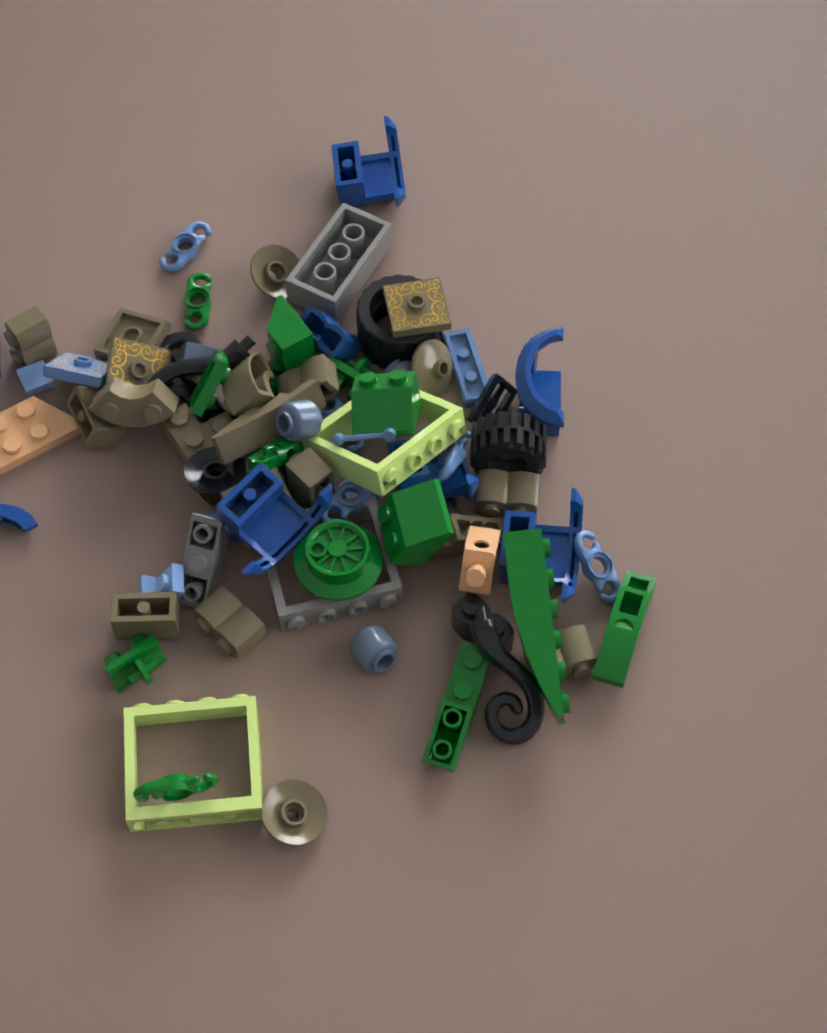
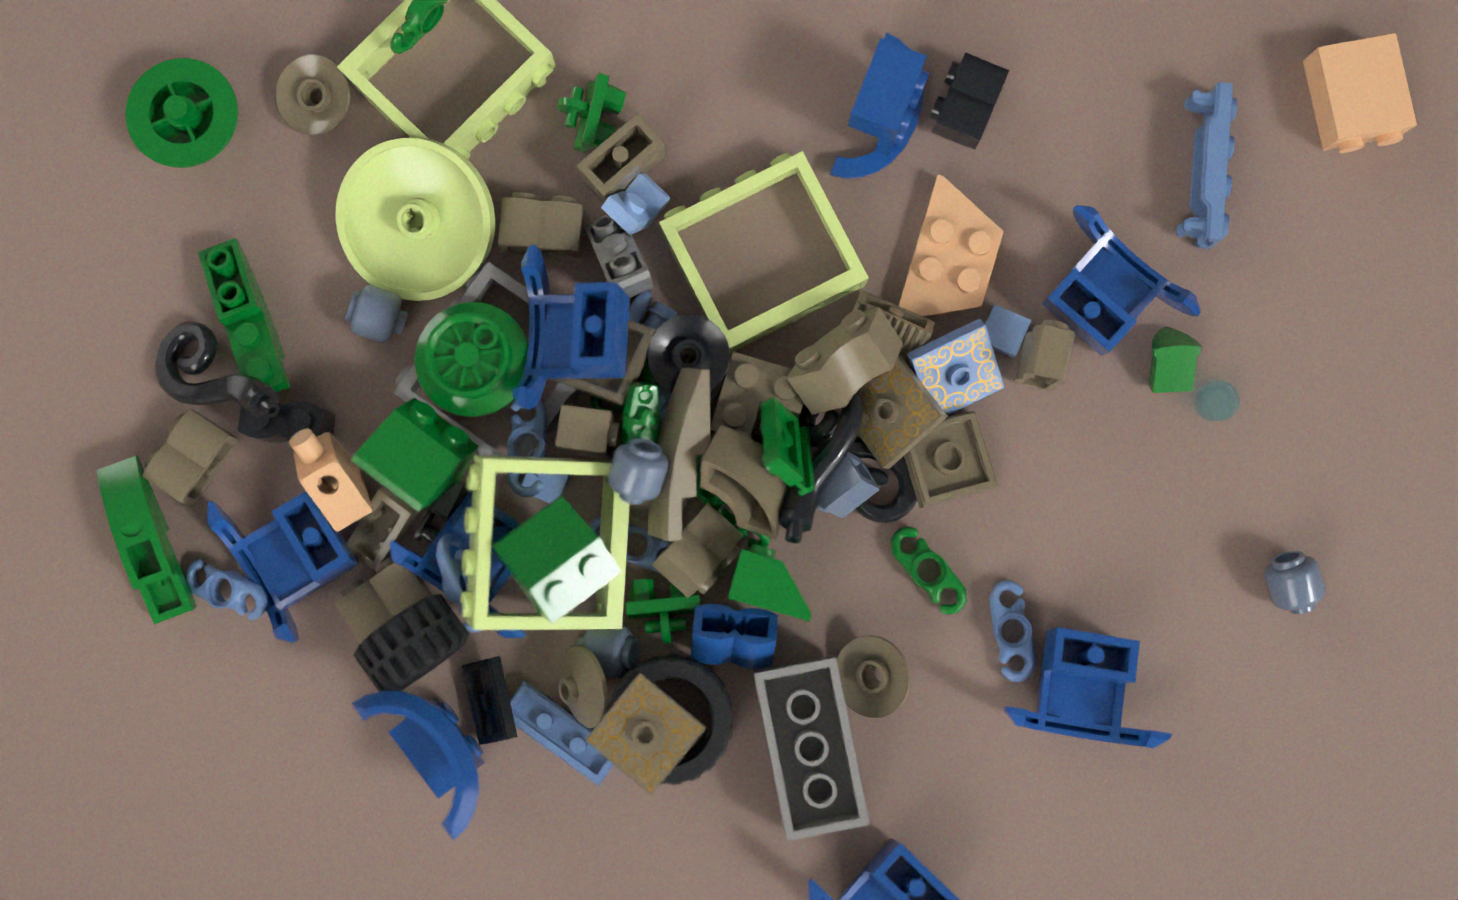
camera: 140 degrees right, 25 degrees up
(27, 166) = (1294, 582): none -> sand blue head
(129, 468) = (795, 308): none -> yellowish green window
(176, 196) = (1085, 689): none -> blue piece
(299, 678) = (415, 218): none -> yellowish green dish
(388, 864) = (181, 112): none -> green wheel
(389, 435) = (574, 481): medium blue hinge -> none
(535, 613) = (221, 461): green slope -> none

